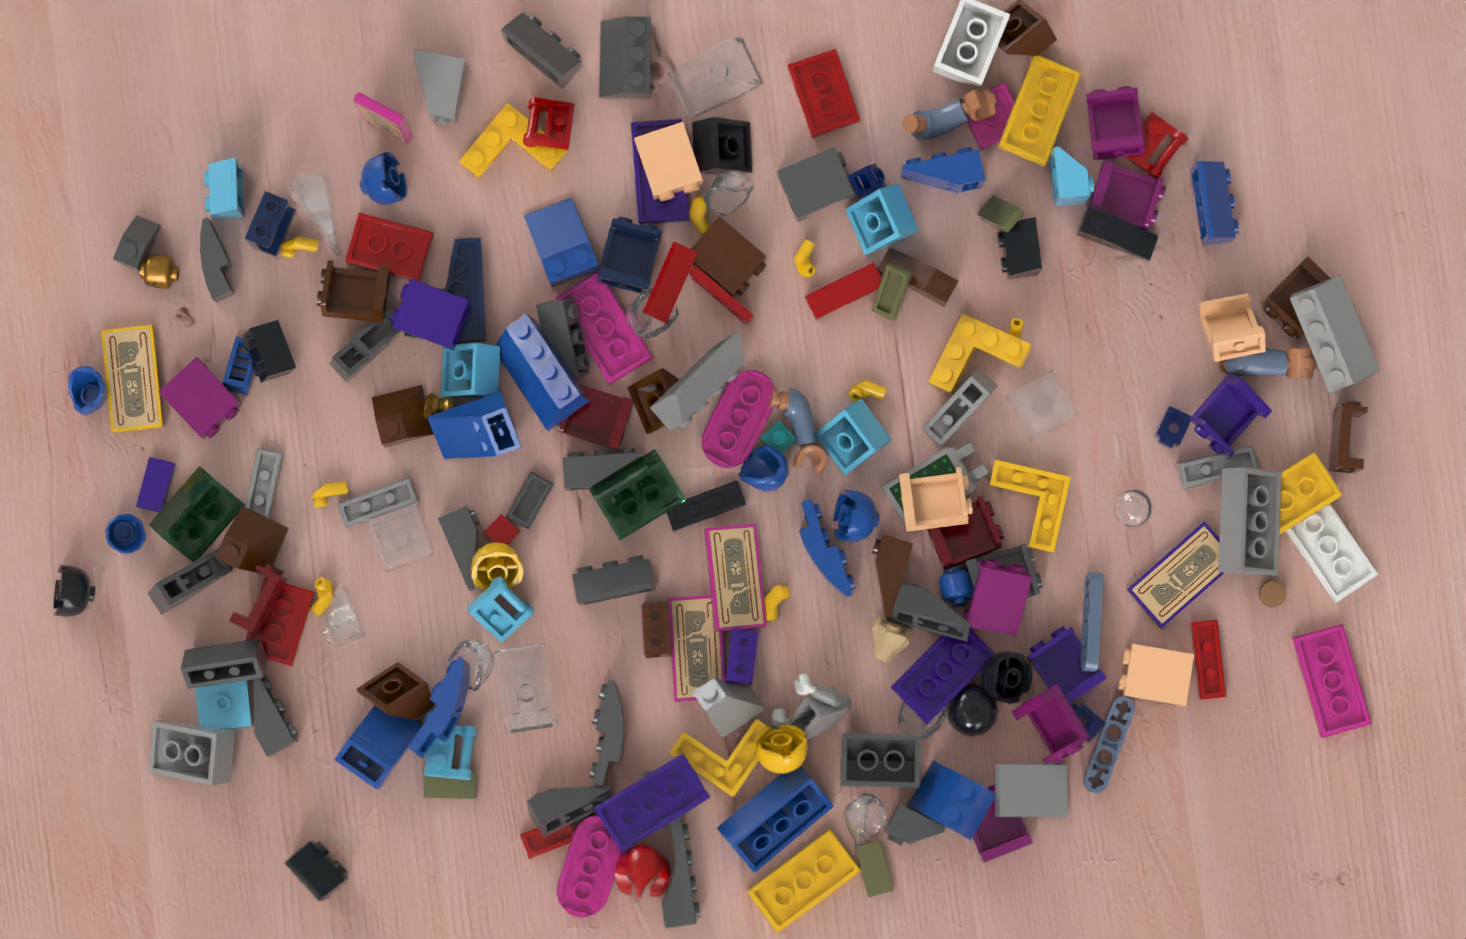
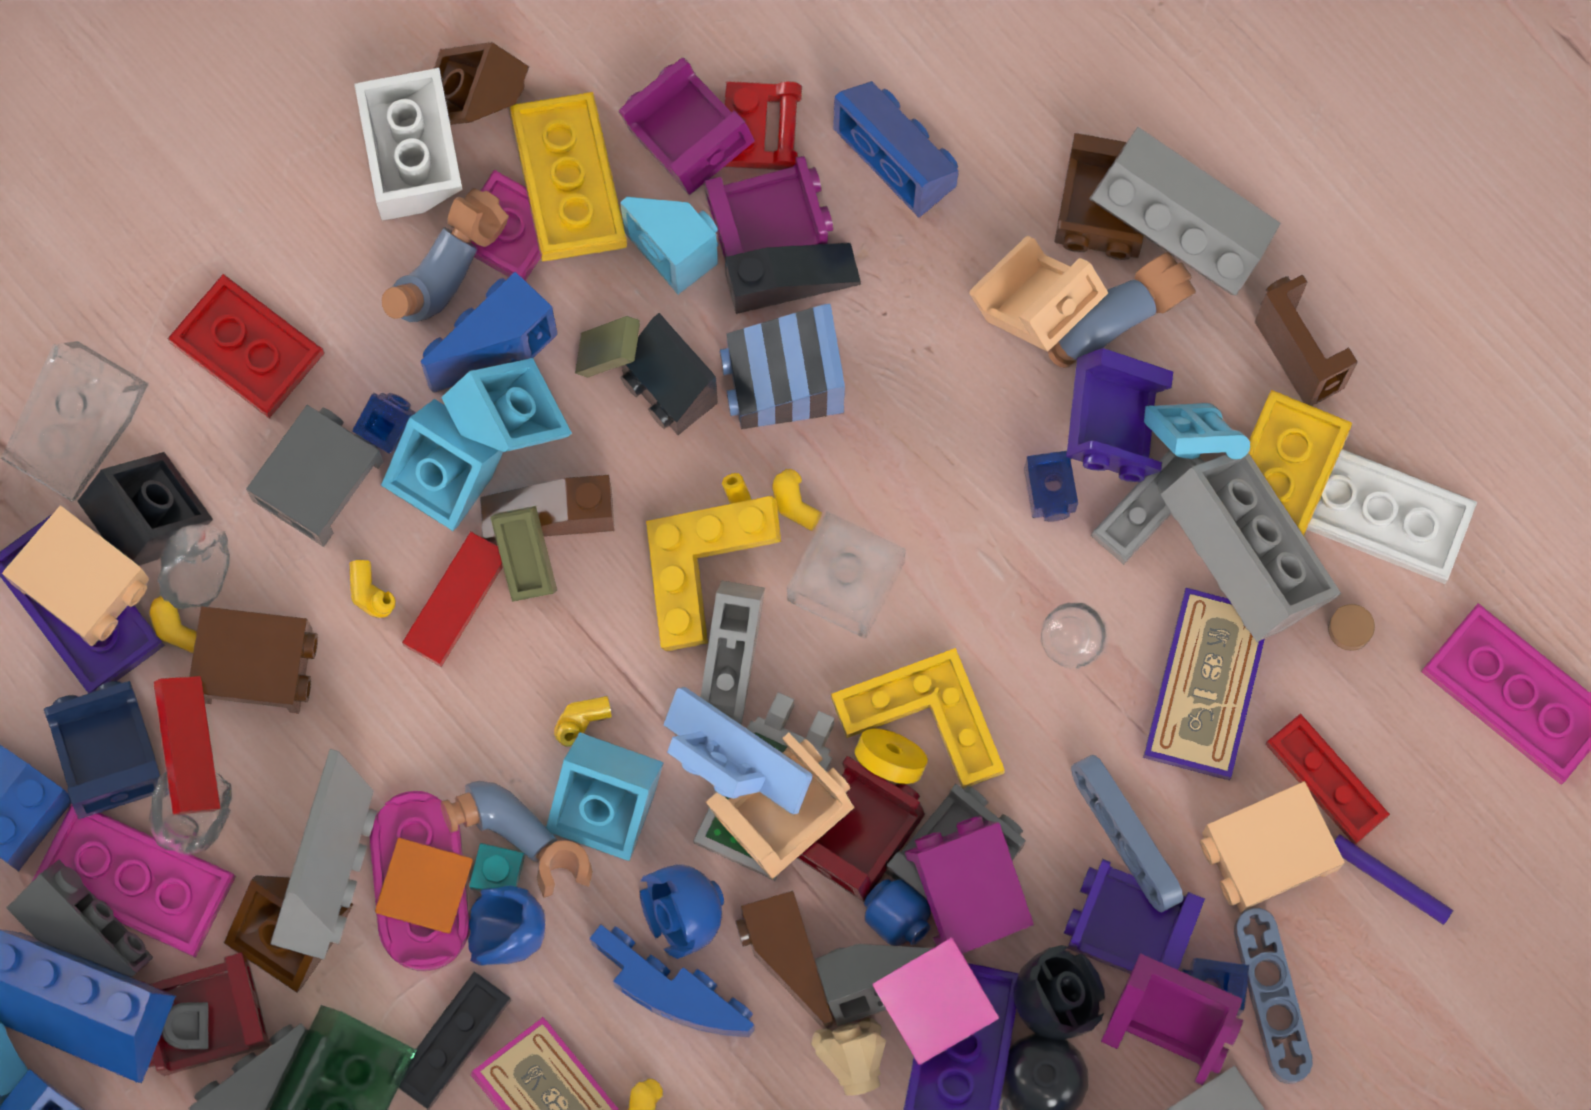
camera: 35 degrees left, 10 degrees down
(586, 417) = (187, 1026): none -> dark grey tile
(720, 295) = (277, 719): red tile -> none
(739, 423) = (424, 885): none -> orange sticker
(925, 458) = (731, 755): none -> light blue bracket
(930, 214) = (506, 407): none -> medium azure slope
(944, 641) = (935, 1001): none -> tile
(1003, 509) = (891, 756): none -> yellow piece
(1039, 350) = (789, 501): none -> yellow arm
(1080, 282) = (785, 369): none -> slope
(1205, 728) = (1393, 880): none -> dark purple bar
(1255, 446) = (1195, 430): none -> medium azure plate

